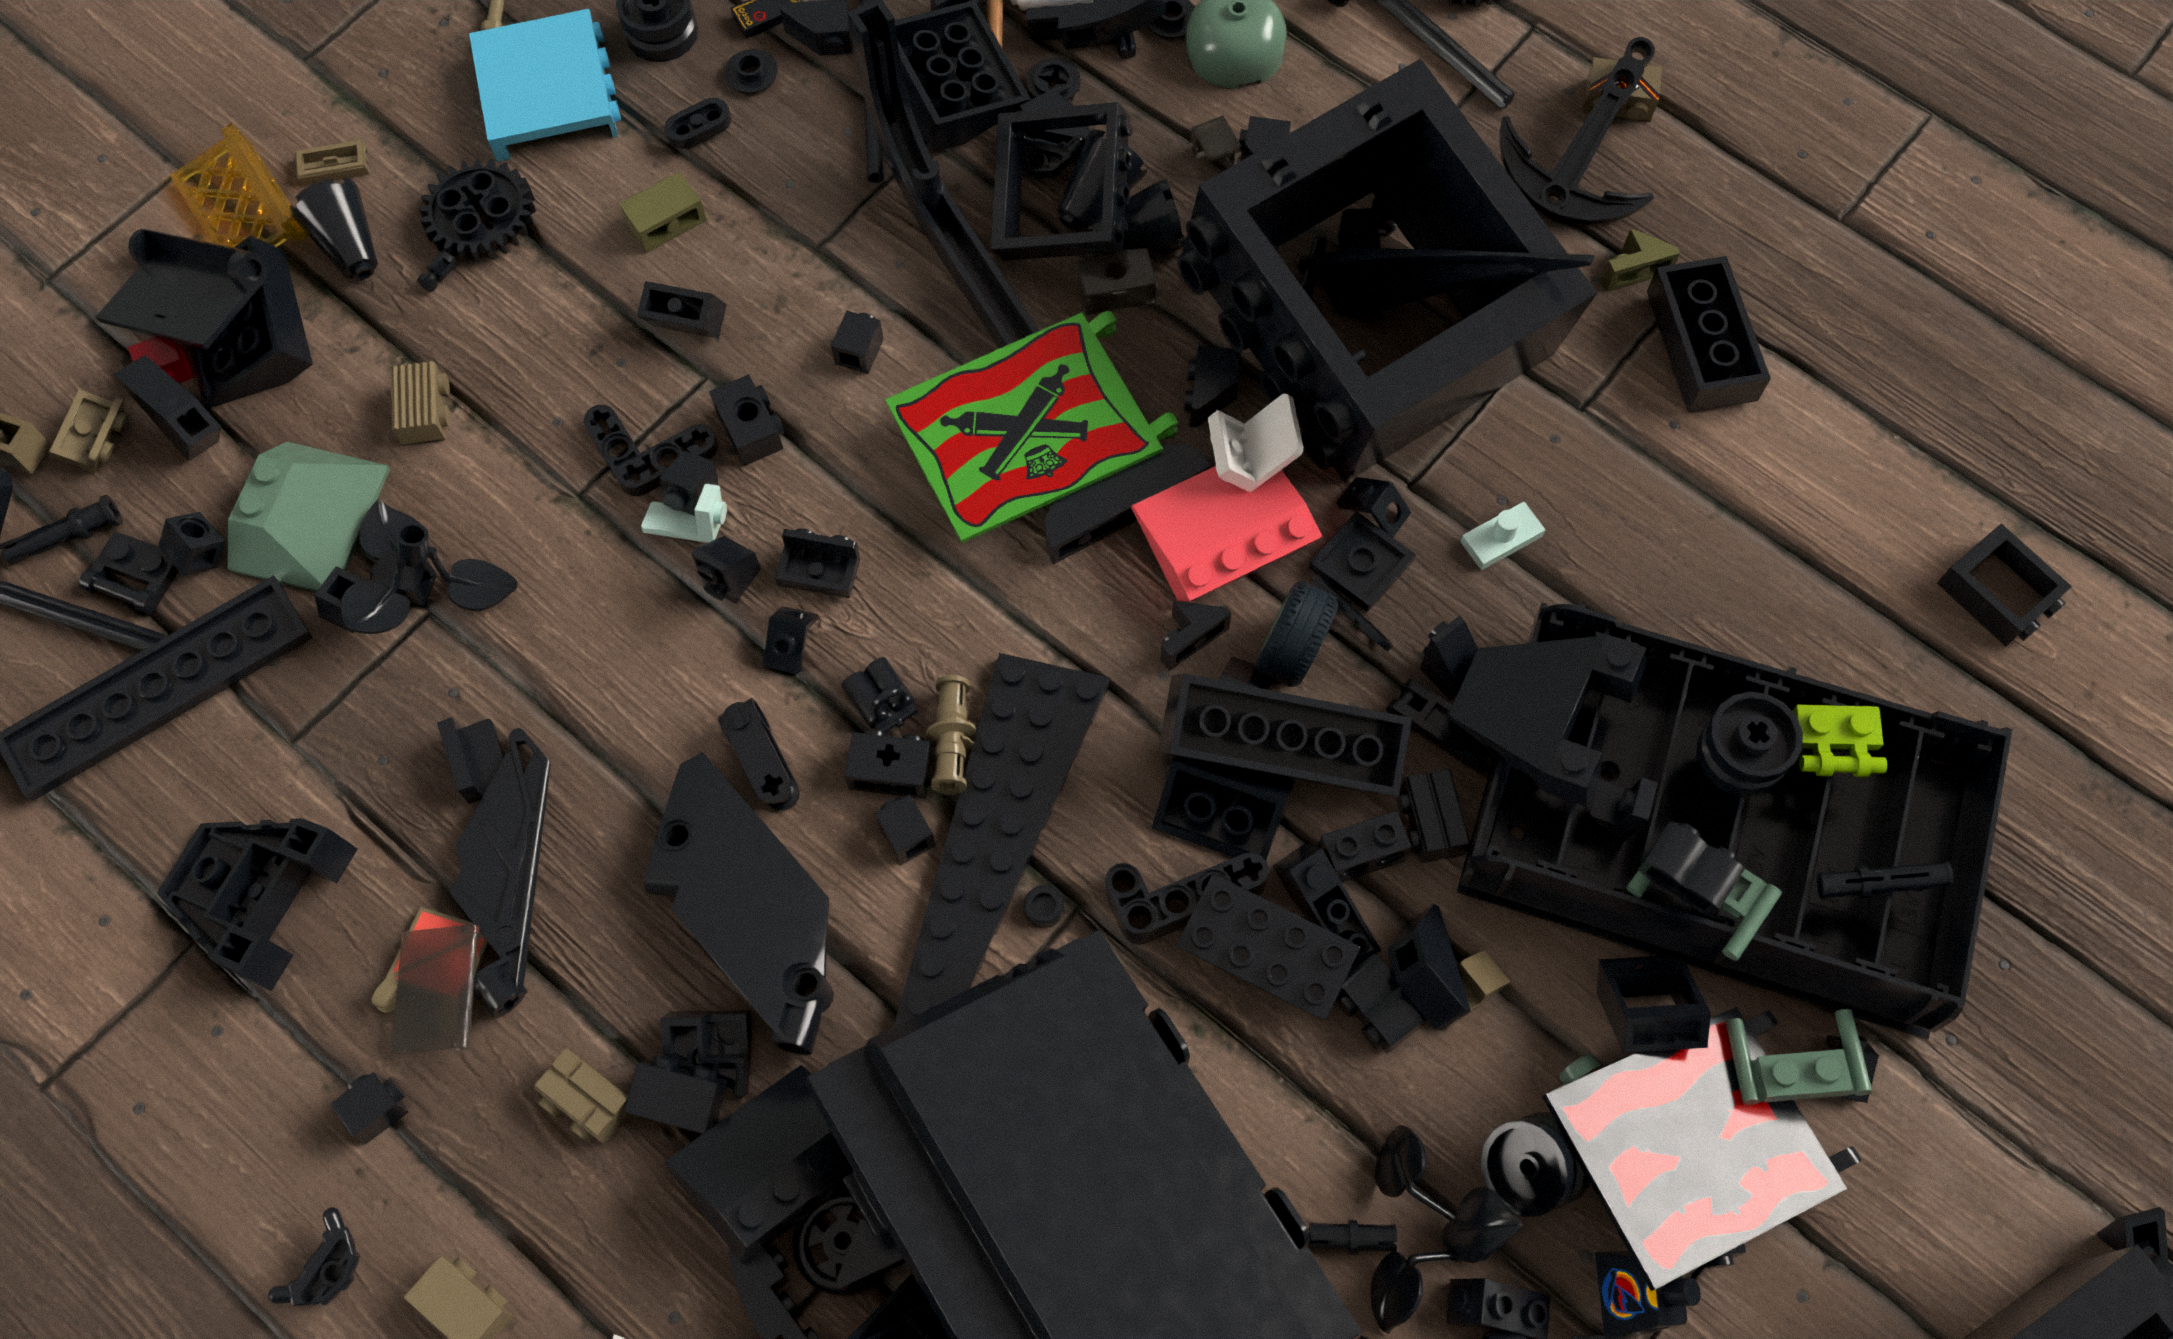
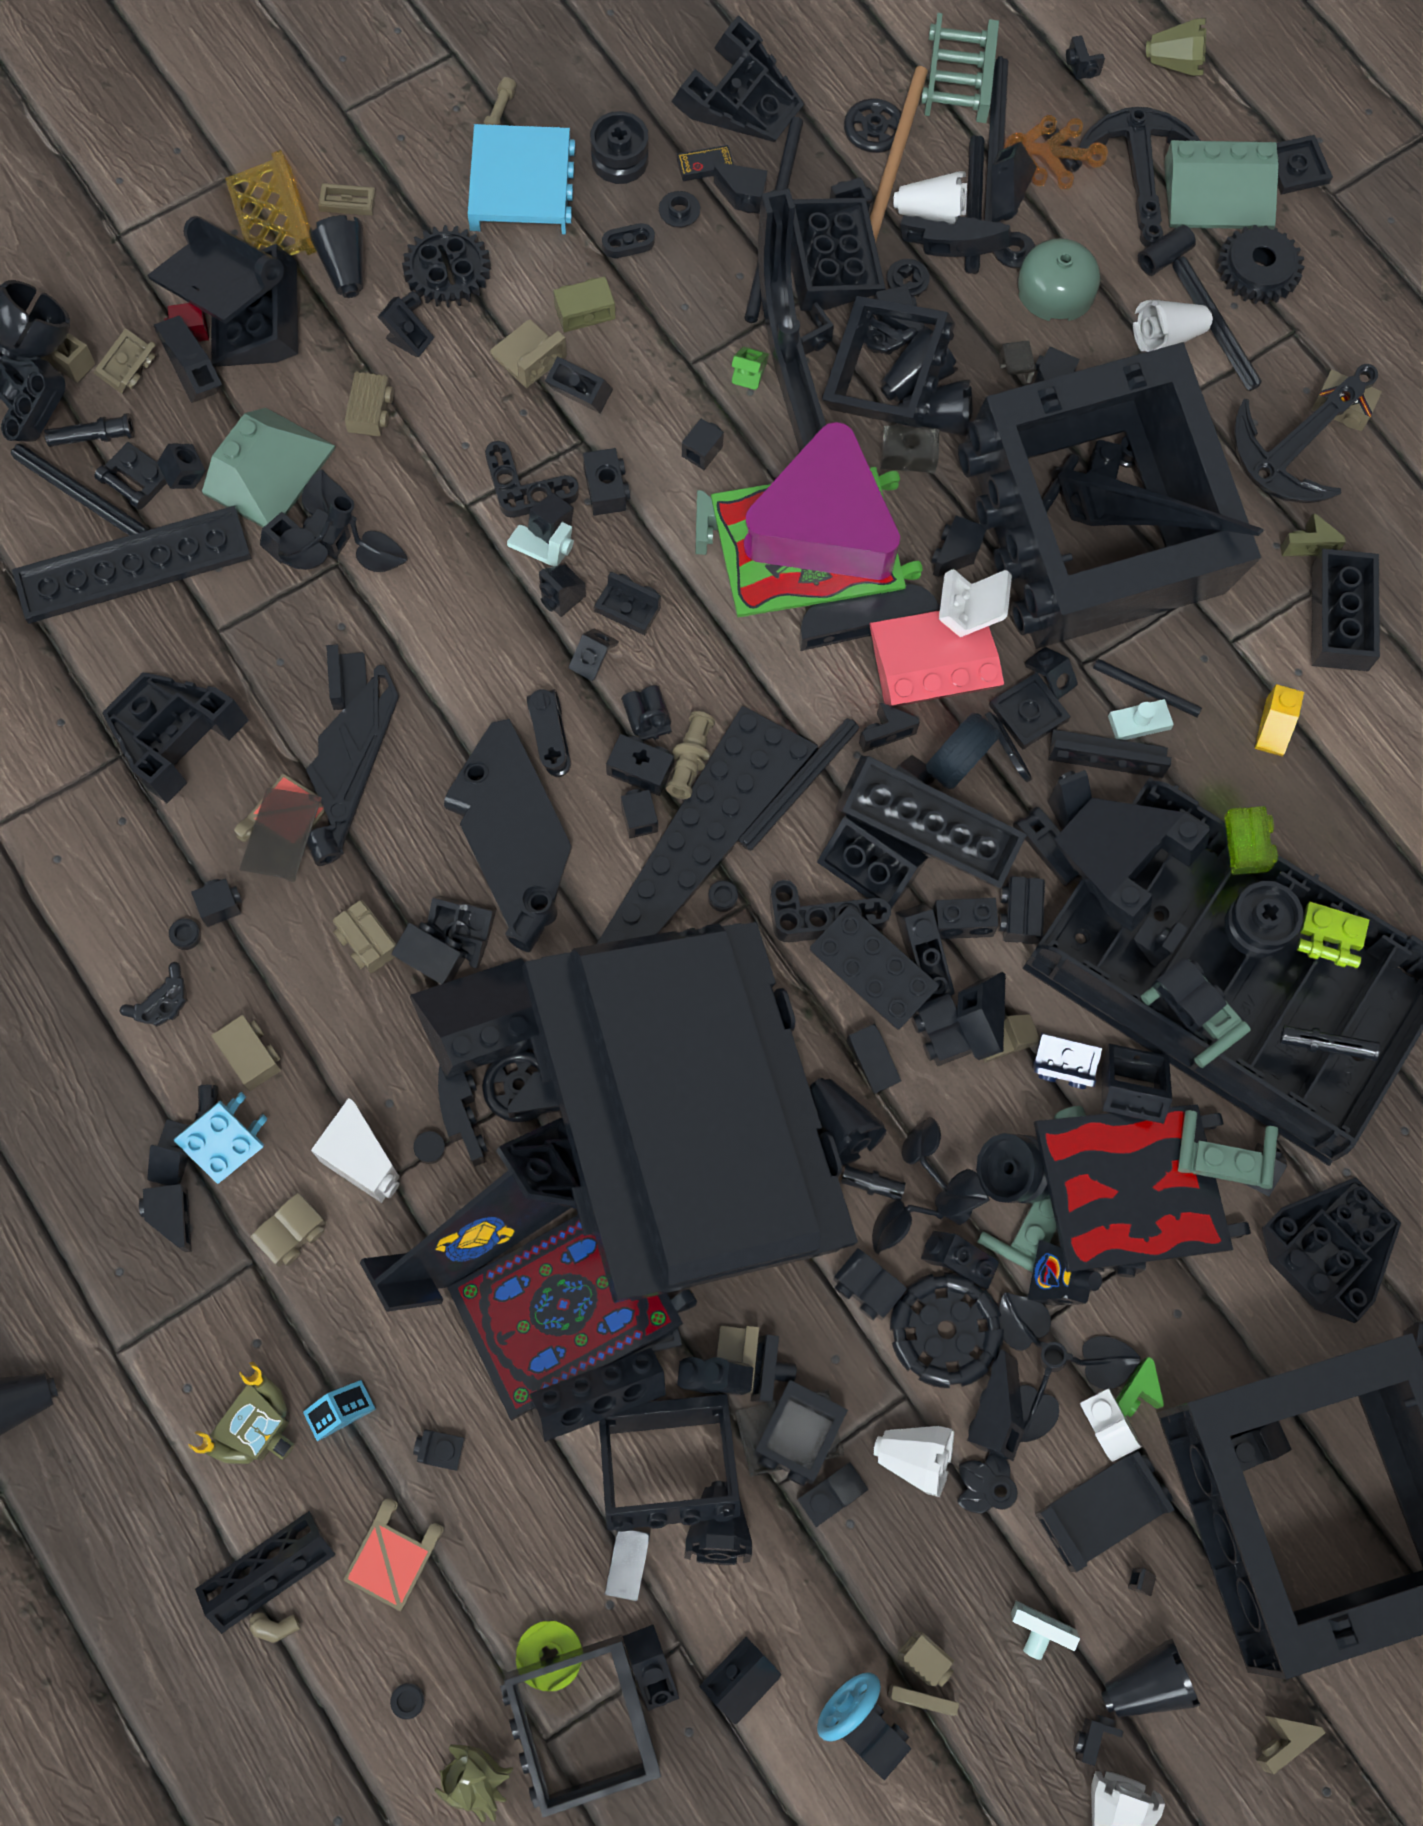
camera: 10 degrees right, 5 degrees up
(337, 1162) = (185, 934): none -> black tile
(443, 297) = (405, 328): none -> black slope
(609, 287) = (529, 352): none -> dark tan bracket
(887, 437) = (704, 523): none -> sand green slope
(889, 235) = (749, 367): none -> bright green slope
(969, 173) = (820, 337): none -> black bracket
(1036, 383) = (825, 513): none -> magenta brick
(1100, 735) = (799, 784): none -> black axle
(1292, 1162) = (846, 1120): none -> black cone
(1303, 1067) = (873, 1058): none -> black slope
(1382, 51) = (1169, 323): none -> white cone
(1477, 587) = (1109, 754): none -> black fence
(1498, 493) = (1147, 688): none -> black bar
(1552, 997) = (1066, 1060): none -> bracket
(1584, 1233) = (1037, 1226): none -> sand green plate
(1672, 488) = (1279, 719): none -> yellow slope
(1697, 647) = (1250, 840): none -> clear neon green brick
(1975, 1149) = (1334, 1248): none -> black wedge

